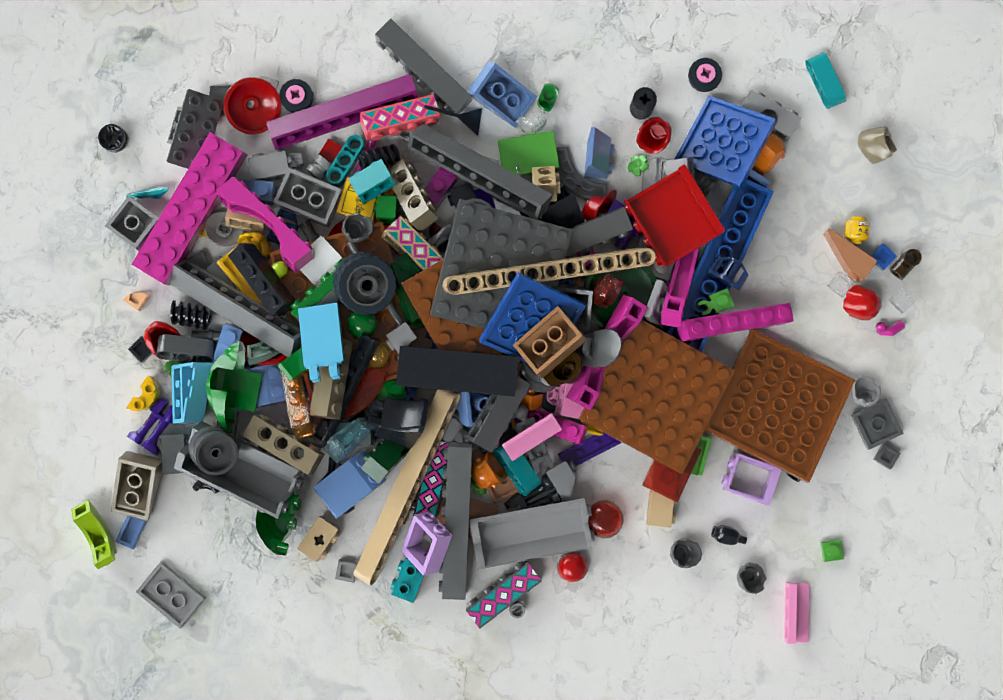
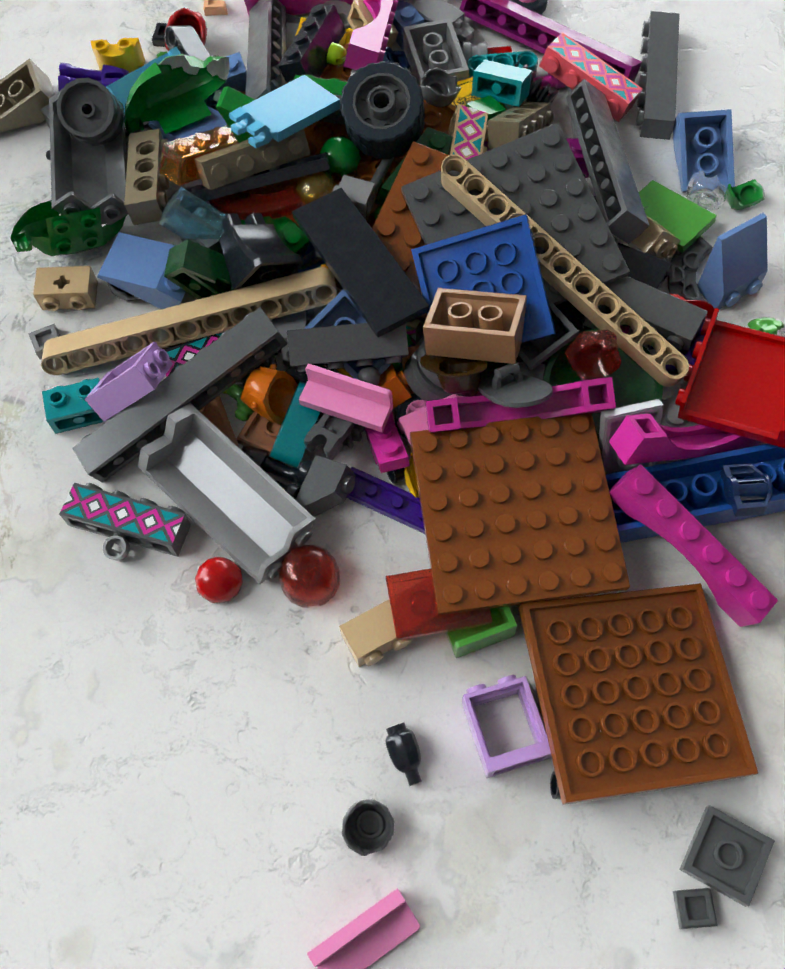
camera: 60 degrees right, 20 degrees down
(189, 316) = (229, 38): black piece -> none
(470, 119) = (650, 146): black piece -> none
(685, 553) = (336, 707): dark grey hair -> none
(718, 301) = (698, 503): bright green plate -> none
(832, 550) = (495, 926): bright green plate -> none
(865, 391) = (757, 799): light grey hair -> none

